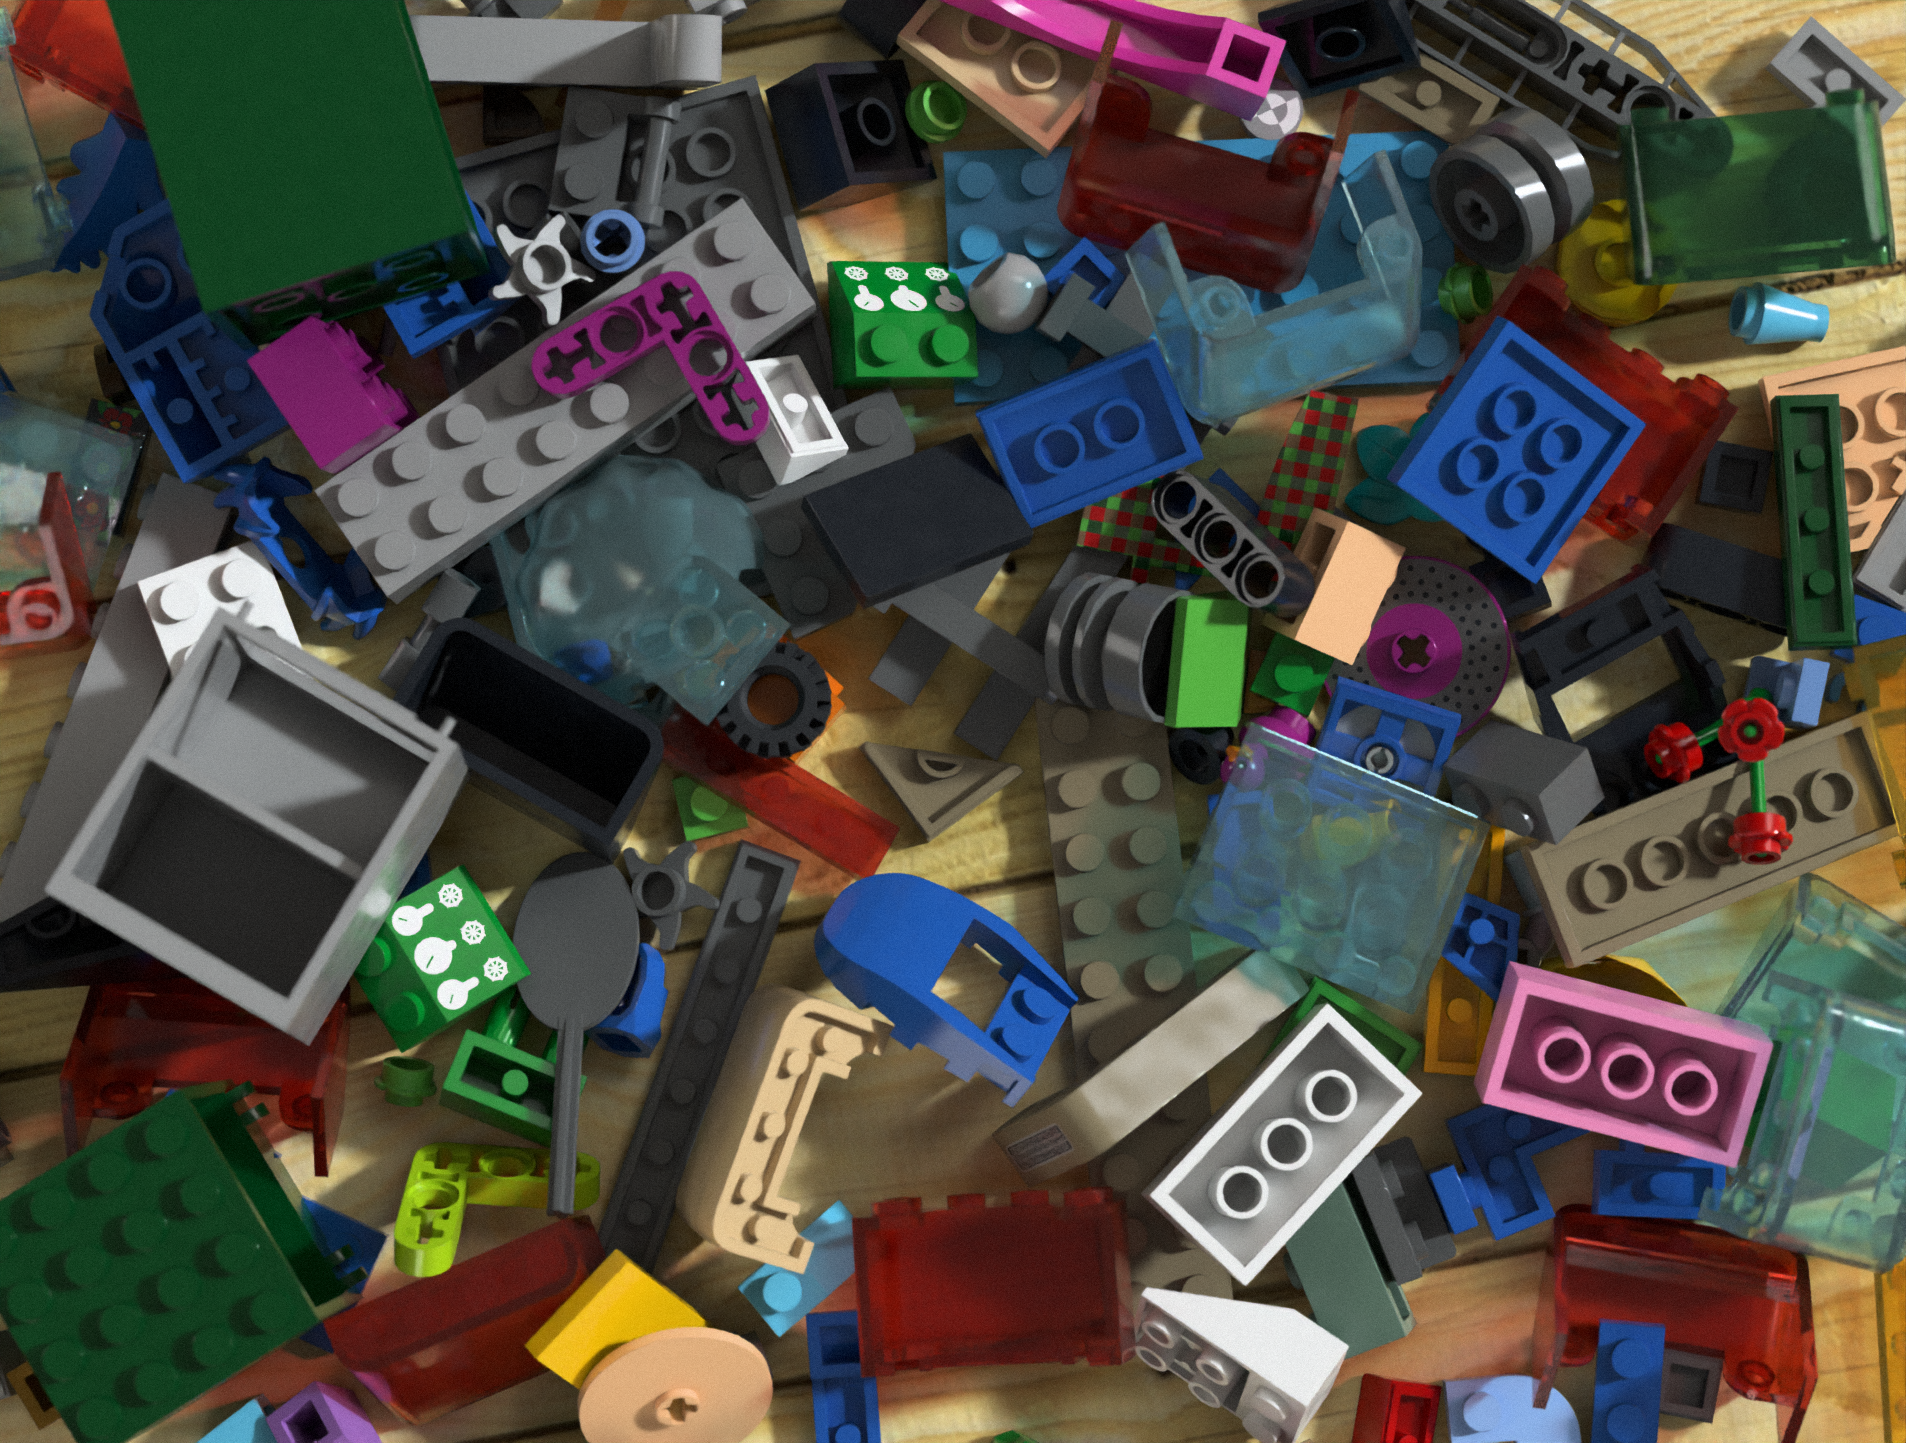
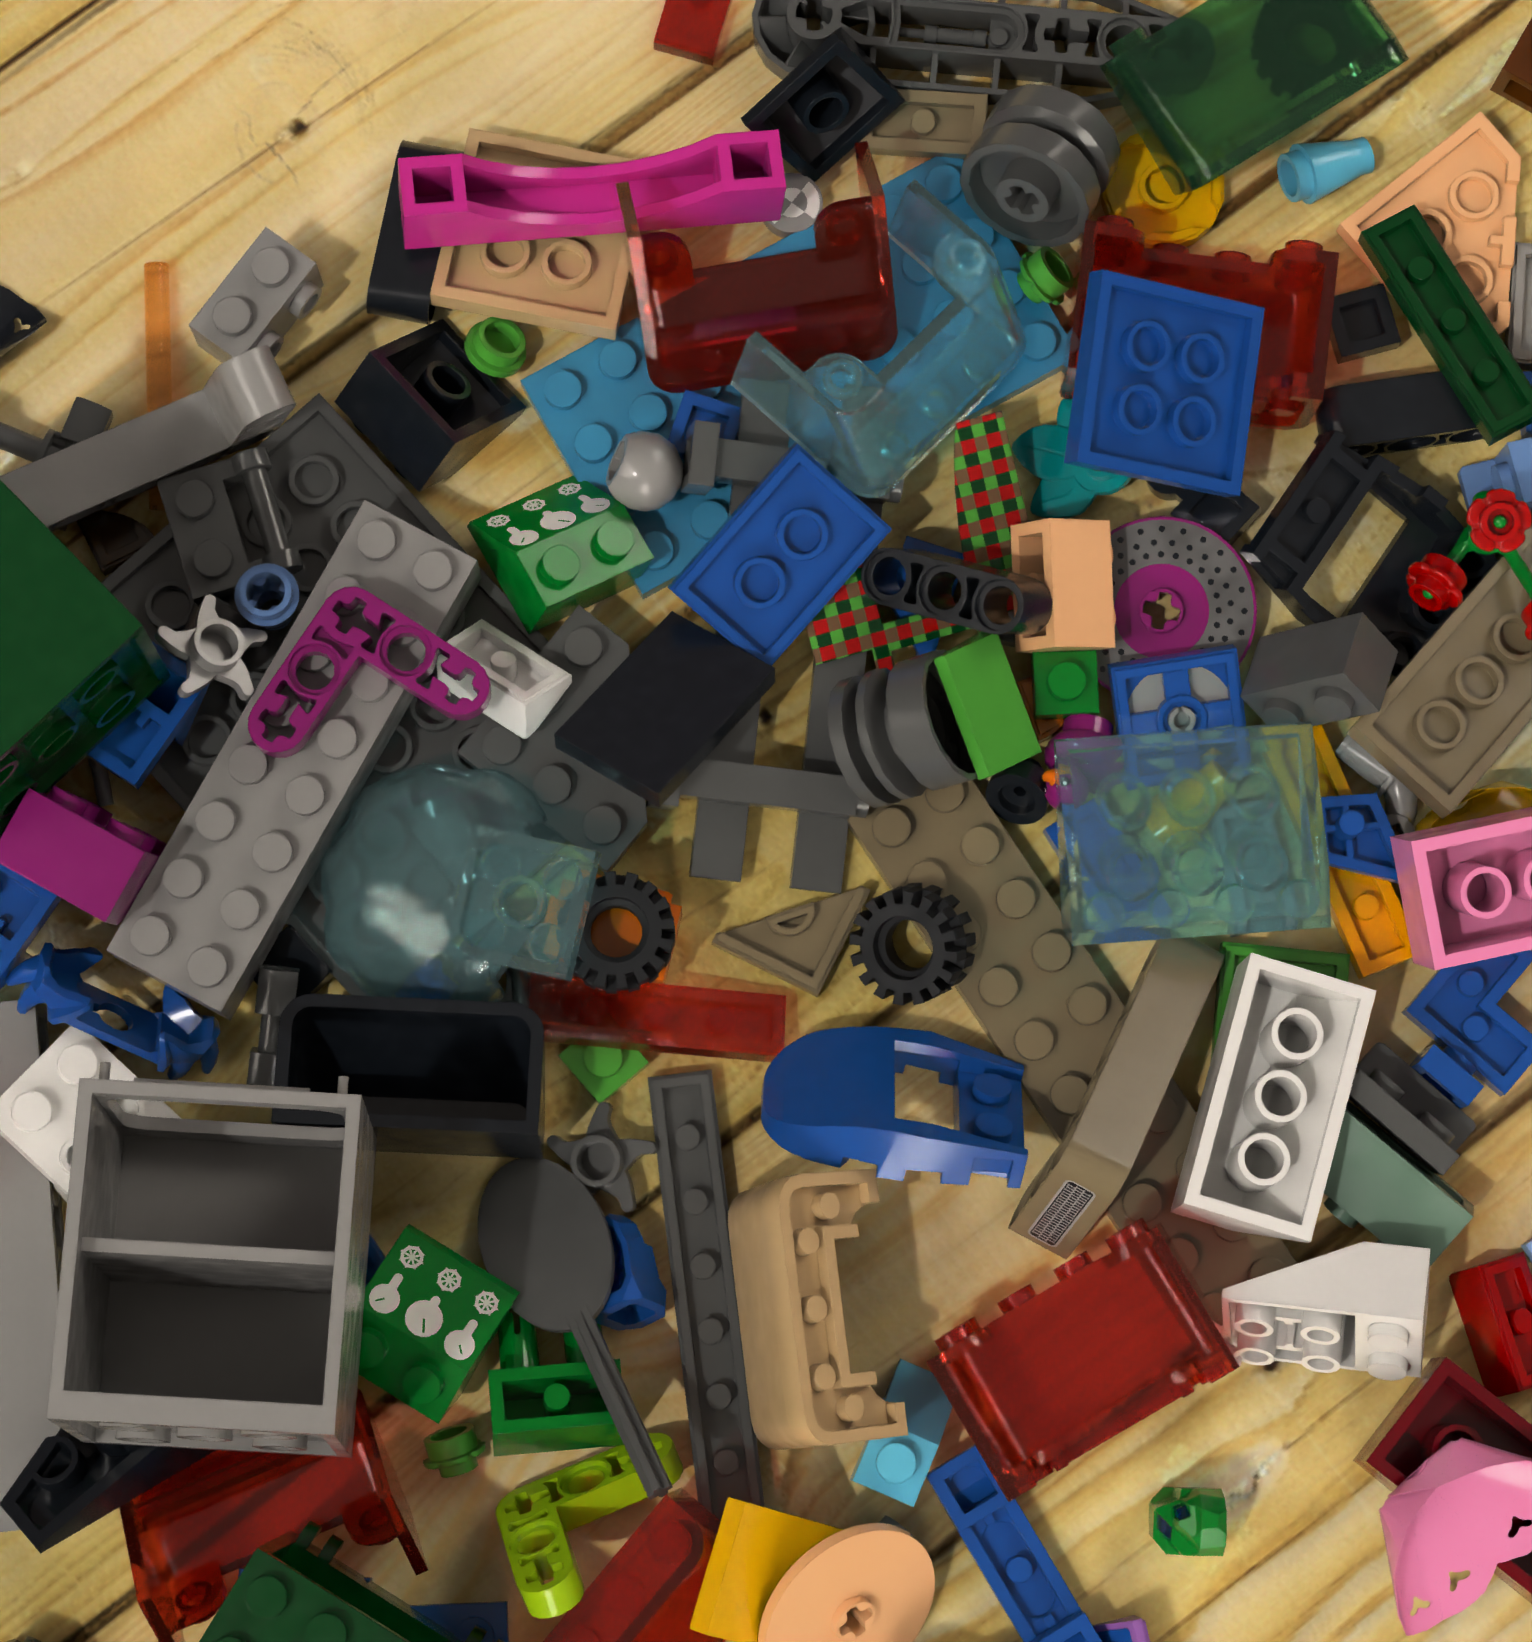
camera: 30 degrees left, 5 degrees down
(1002, 840) = (879, 954): none -> black tyre

